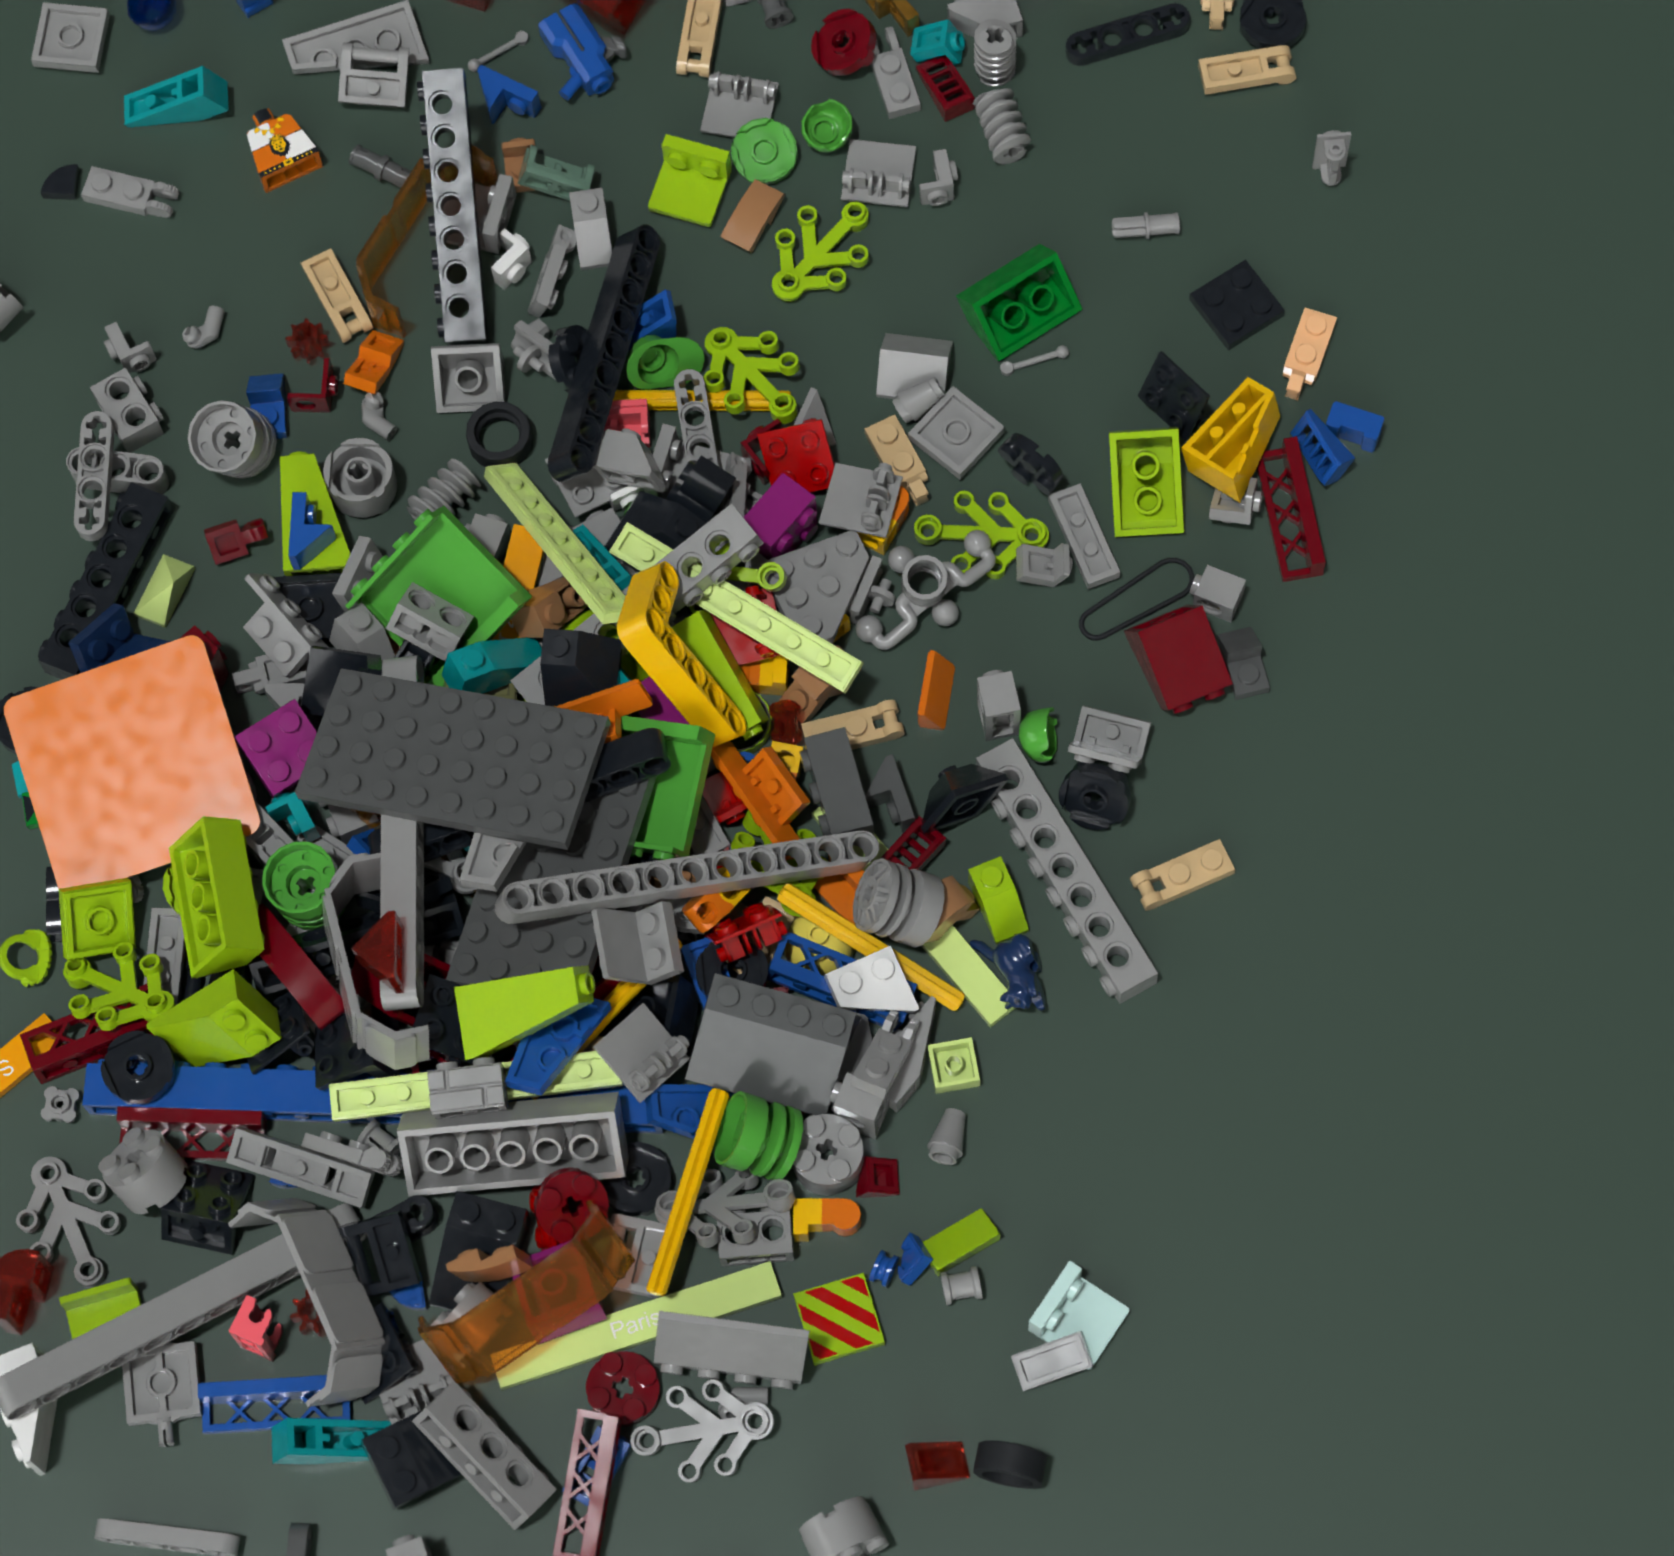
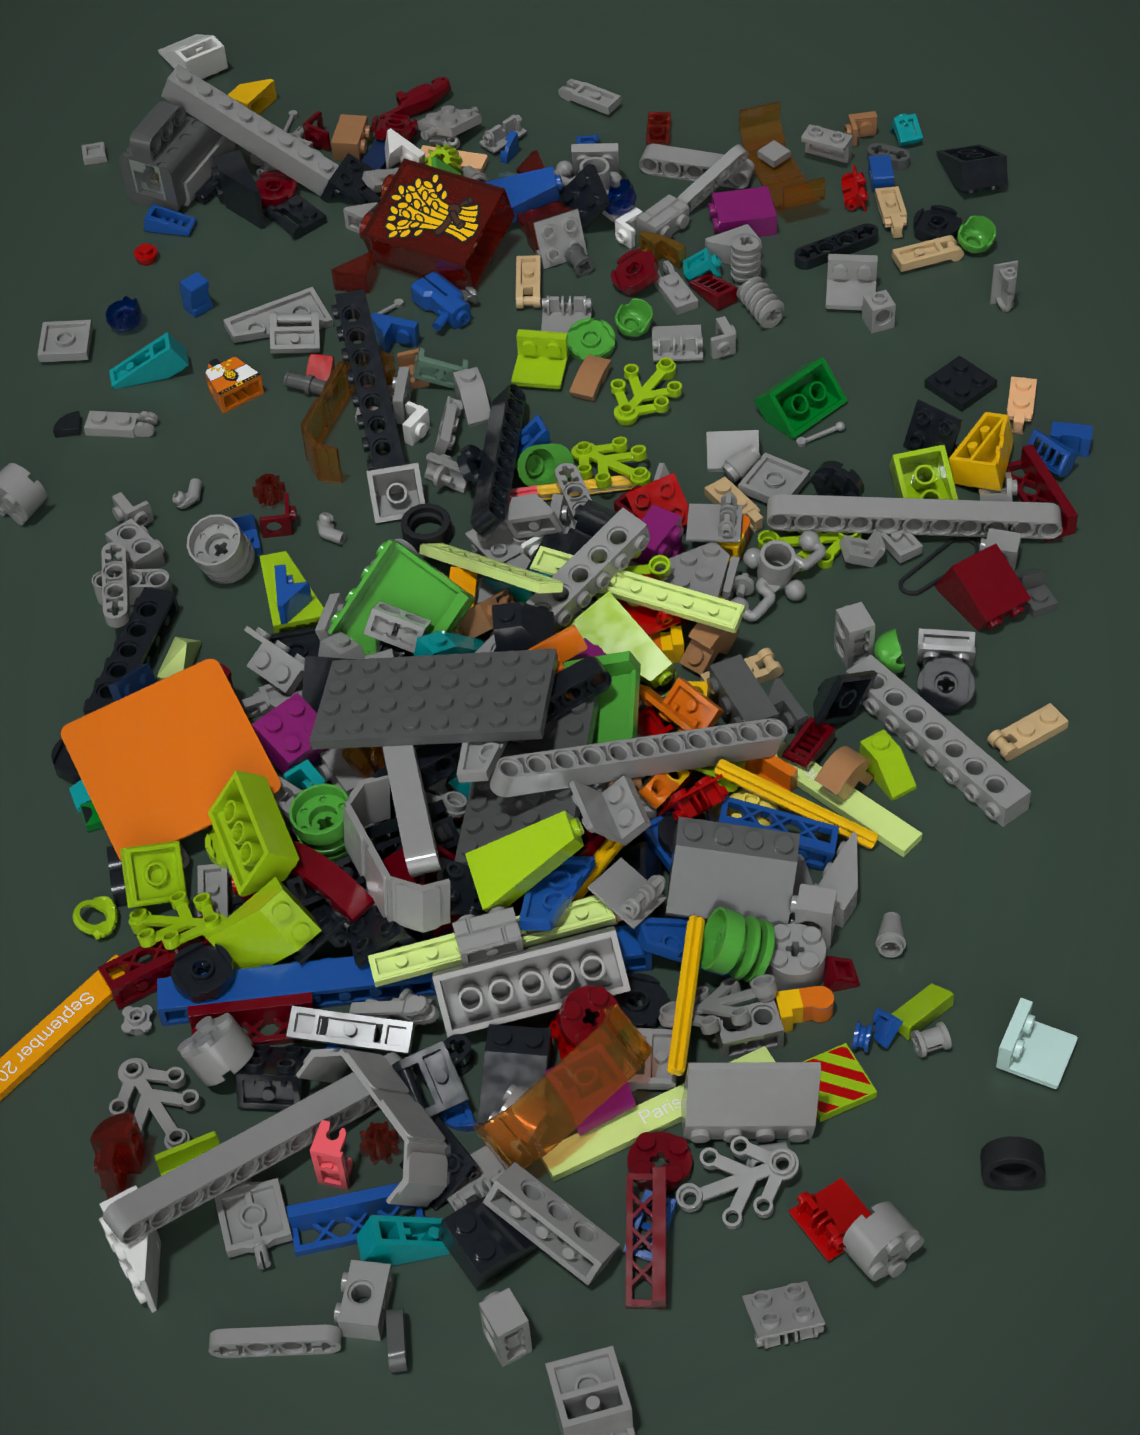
camera: 10 degrees left, 20 degrees down
(230, 541) = (227, 618): dark red plate -> none
(270, 1528) = (367, 1318): none -> light grey brick
(336, 294) = (287, 461): tan plate -> none
(366, 495) = (325, 563): light grey brick -> none
(374, 362) = (322, 496): orange slope -> none
(383, 951) = (401, 826): clear red slope -> none
(401, 143) = (320, 366): none -> red slope
(479, 1267) = (528, 1072): medium nougat slope -> none
(668, 660) = (574, 585): yellow beam -> none
(786, 721) = (689, 662): clear red bush -> none
(799, 1488) = (828, 1216): none -> red hinge
(872, 984) = (809, 821): white wing -> none
(884, 1057) = (828, 870): light grey hinge -> none
(898, 902) = (812, 764): light grey wheel -> none
(935, 692) = (800, 641): orange slope -> none
(936, 1463) = (943, 1178): clear red slope -> none
(953, 1065) = (881, 885): yellowish green piece -> none
(1018, 966) = (915, 805): dark blue animal -> none
(1052, 1361) = (1024, 1084): light grey tile -> none
(1117, 529) = (912, 516): none -> light grey beam
(1130, 112) = (850, 279): none -> light grey bracket
(1146, 225) = (881, 346): light grey axle -> none
(1155, 167) = (878, 311): none -> light grey brick
(1319, 51) = (976, 234): none -> bright green hair

